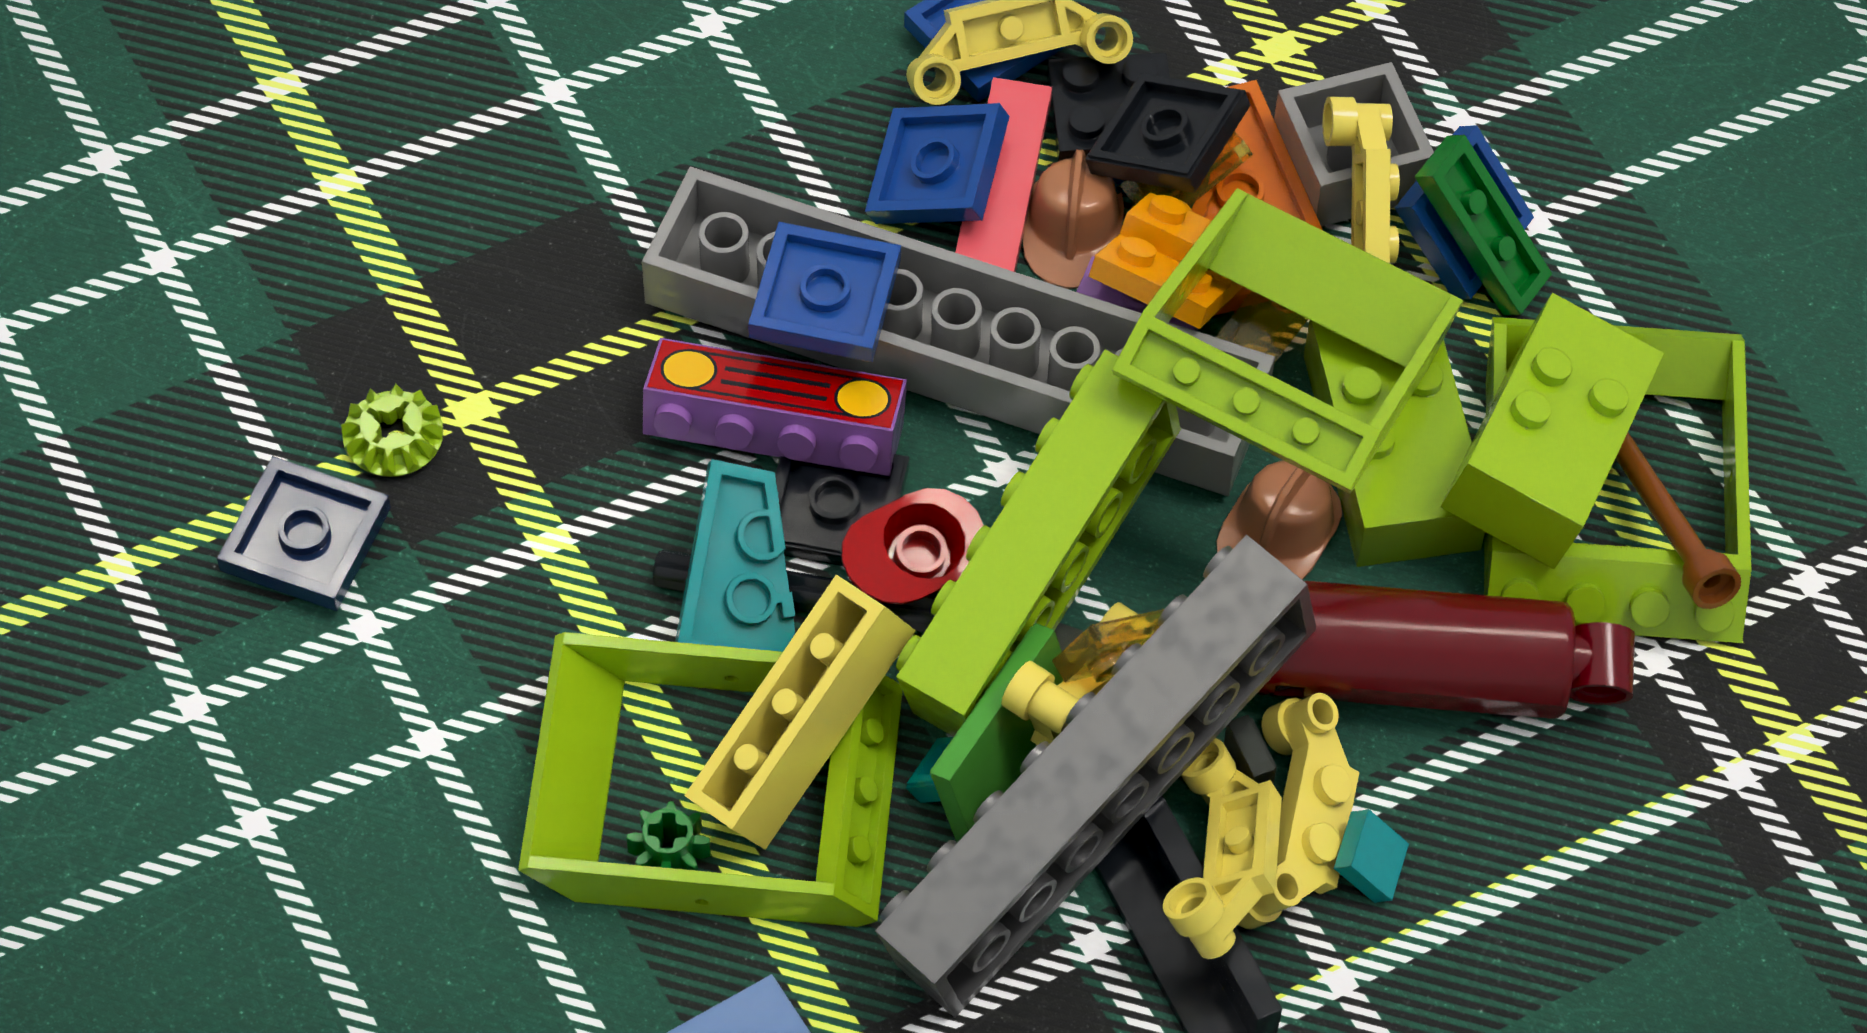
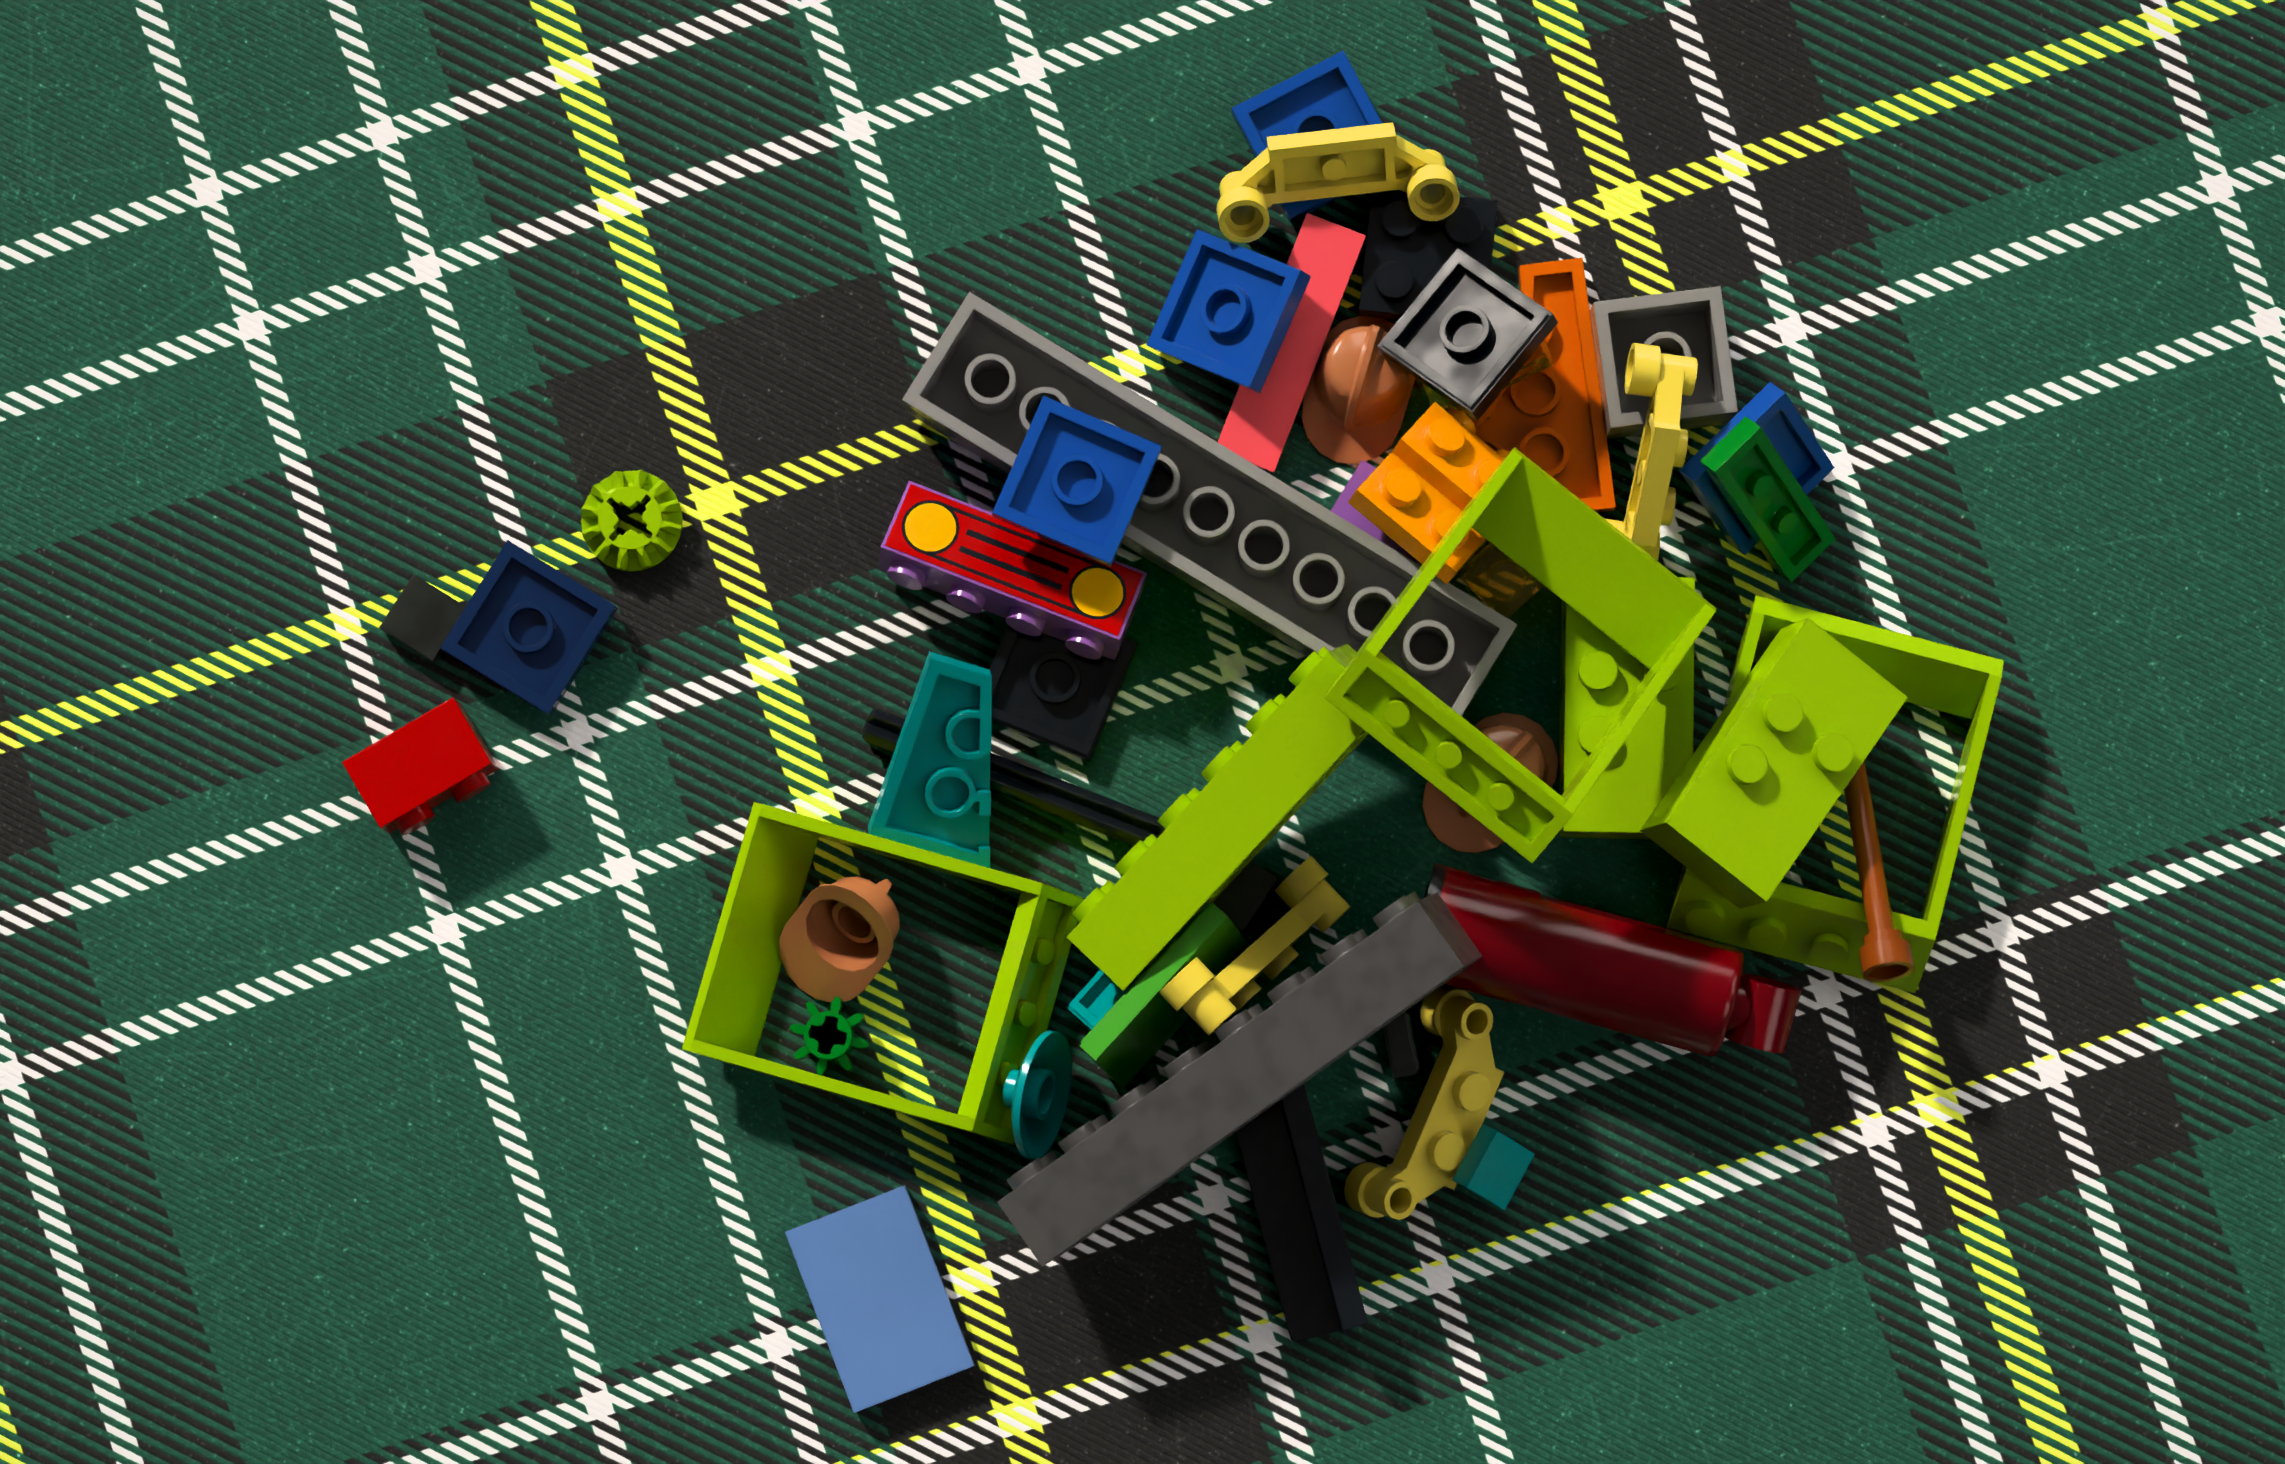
camera: 15 degrees right, 25 degrees up
(193, 545) = (422, 618): none -> pearl dark grey tile
(211, 667) = (421, 768): none -> red brick
(660, 745) = (840, 938): none -> nougat piece
(800, 712) = (972, 943): light yellow brick -> none
(894, 844) = (1039, 1094): none -> teal dish
(910, 545) = (1116, 768): red piece -> none
(1102, 644) = (1310, 931): clear yellow plate -> none
(1238, 853) = (1359, 1164): light yellow plate -> none

